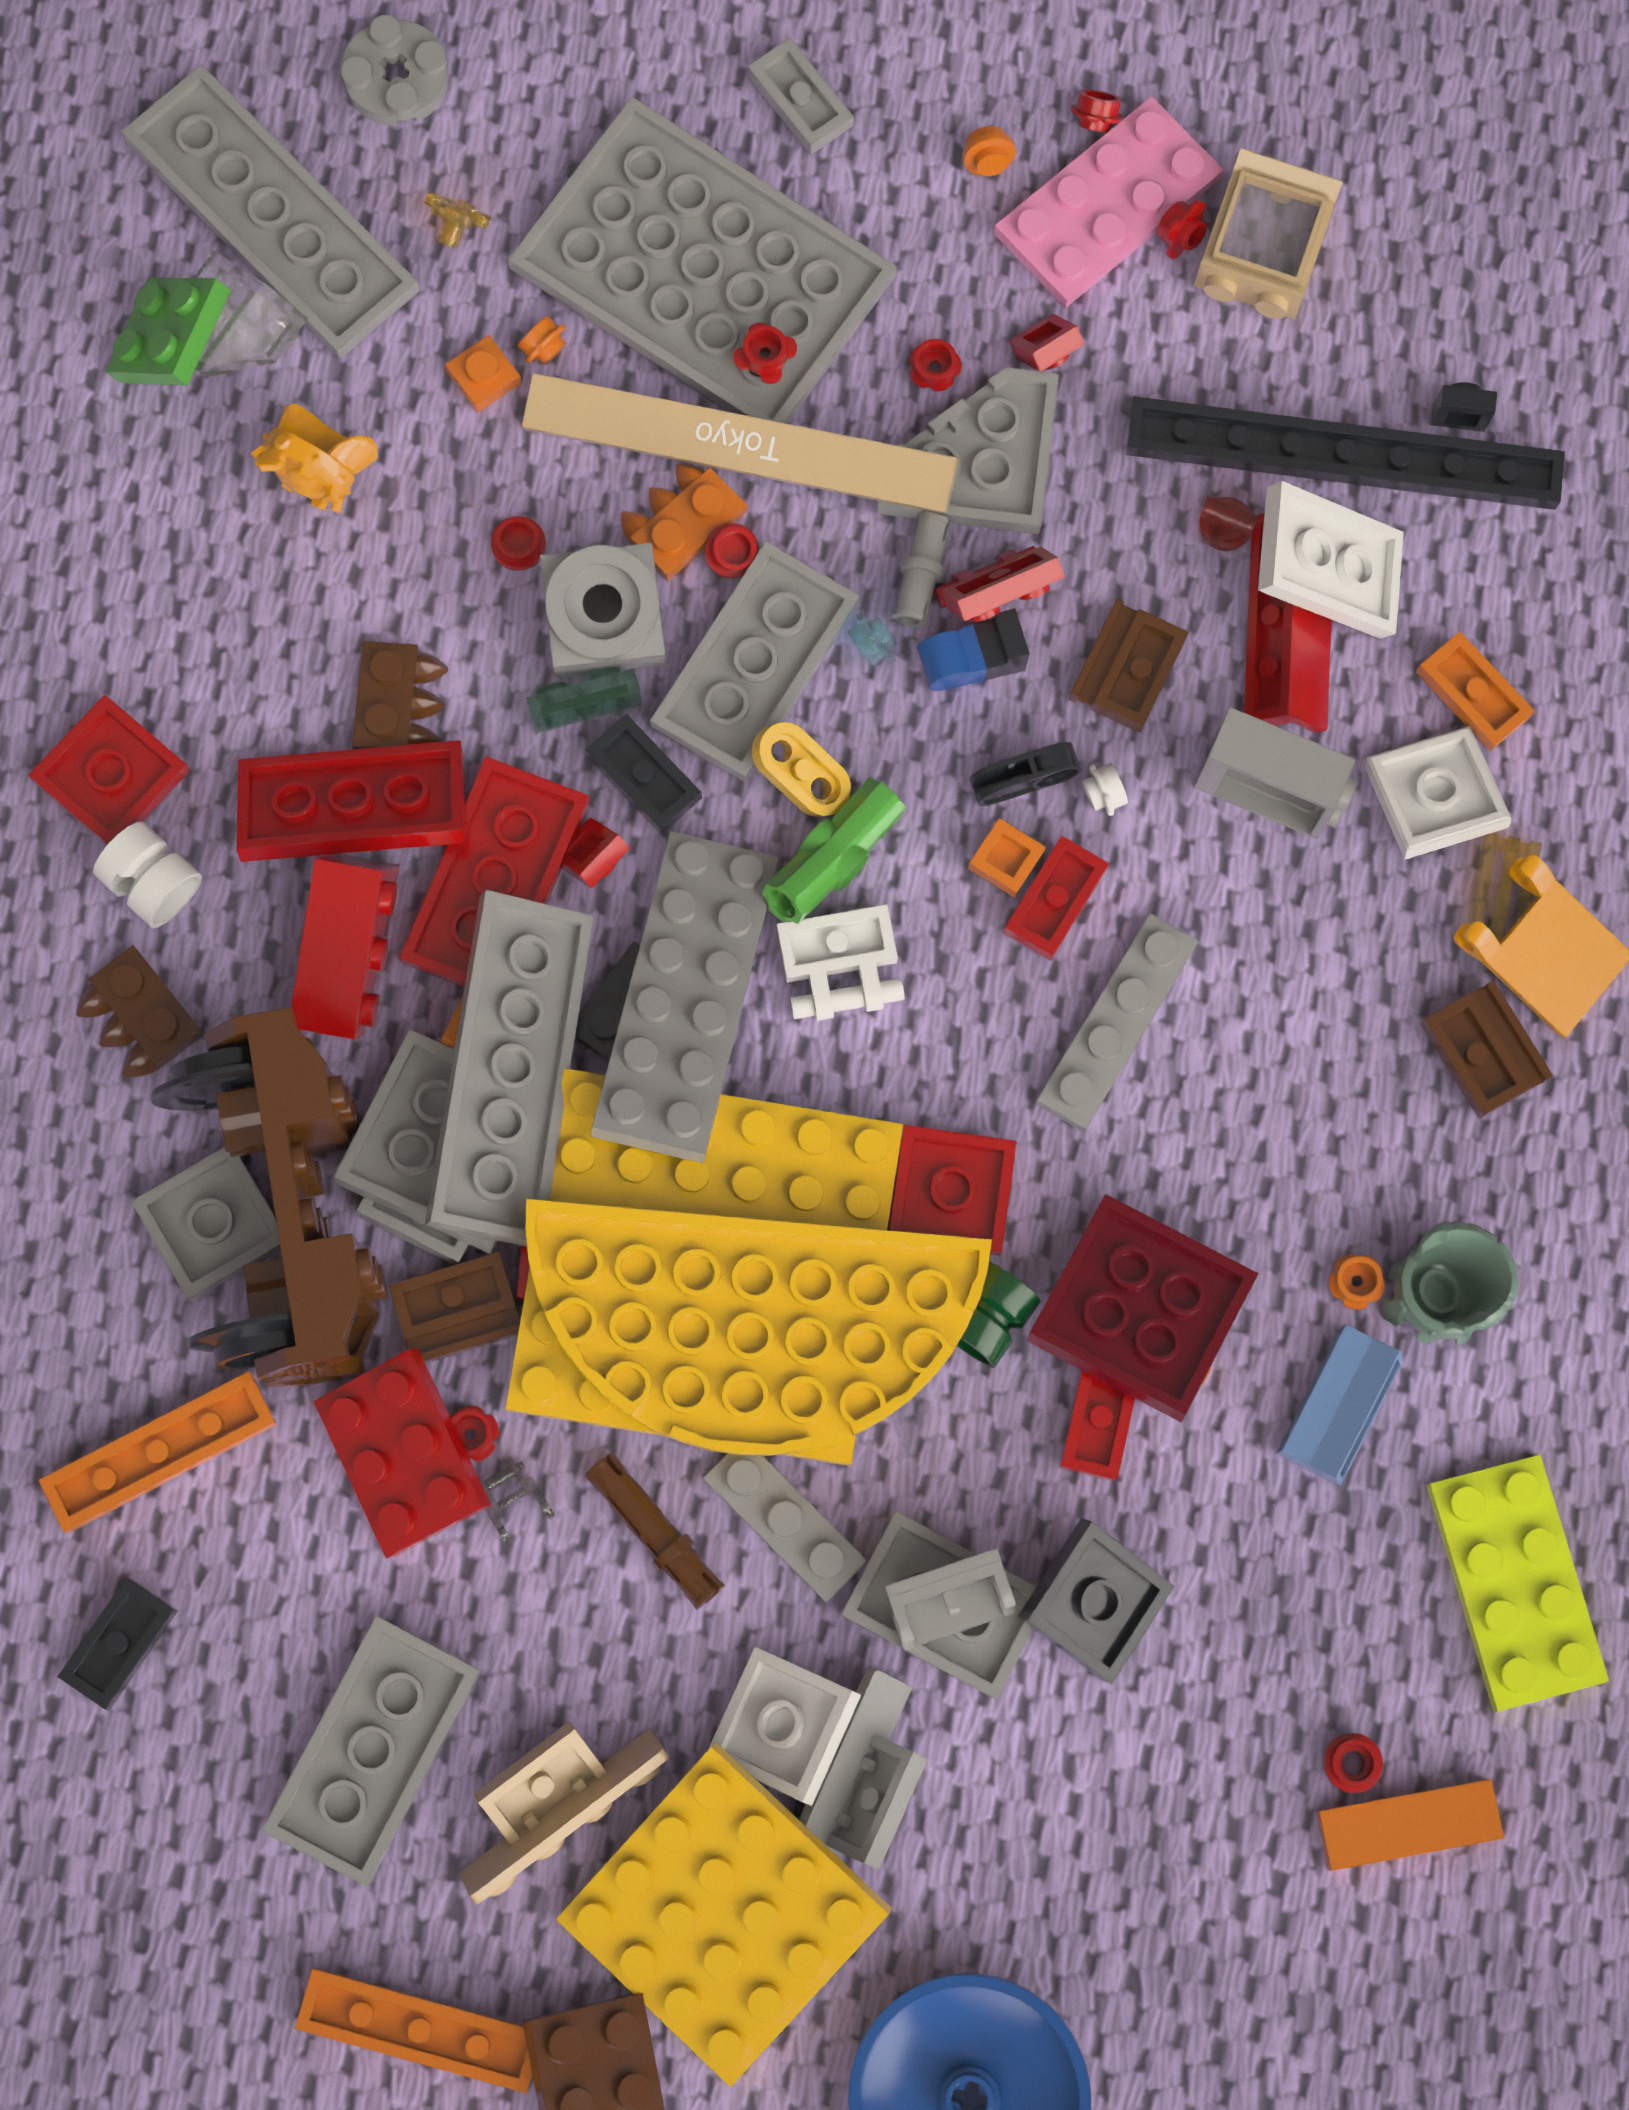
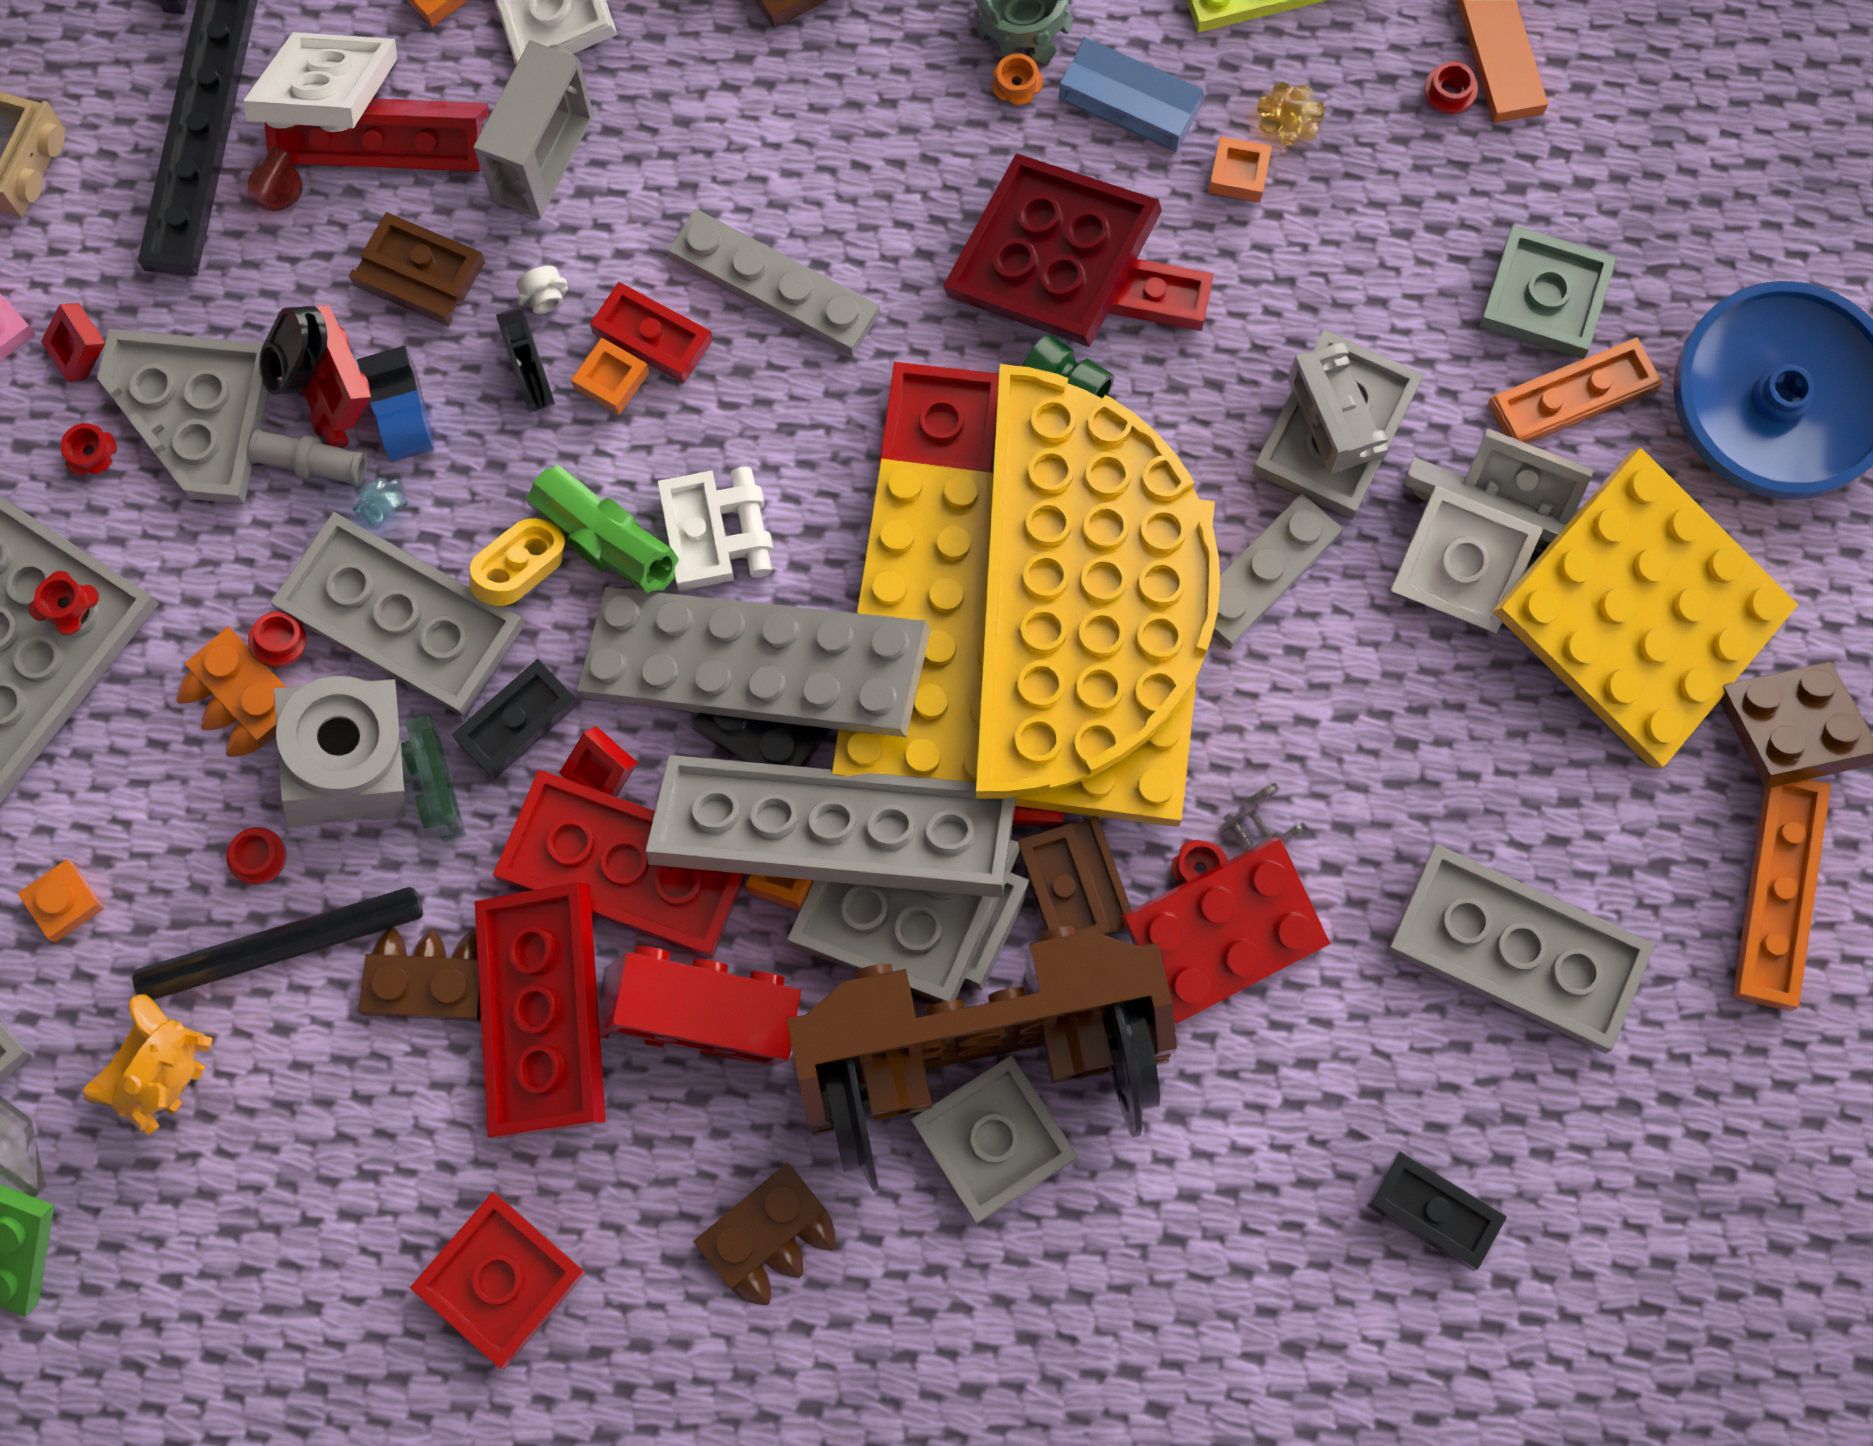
camera: 85 degrees left, 5 degrees down
(139, 867) = (616, 1227): white wheel -> none
(157, 1452) = (1239, 1183): orange plate -> none
(433, 568) = (278, 944): none -> black axle
(543, 341) = (29, 836): orange plate -> none
(549, 1798) = (1555, 771): tan bracket -> none
(654, 1530) = (1303, 671): reddish brown pin -> none
(740, 443) = (160, 634): tan tile -> none
(983, 1870) = (1575, 392): none -> orange tile
(1019, 546) = (293, 349): none -> black piece
(1096, 1601) = (1328, 288): plate -> none
(1099, 1848) = (1548, 292): none -> sand green plate
(1247, 1517) = (1240, 169): none -> orange plate
(1312, 1585) = (1290, 113): none -> clear yellow plant

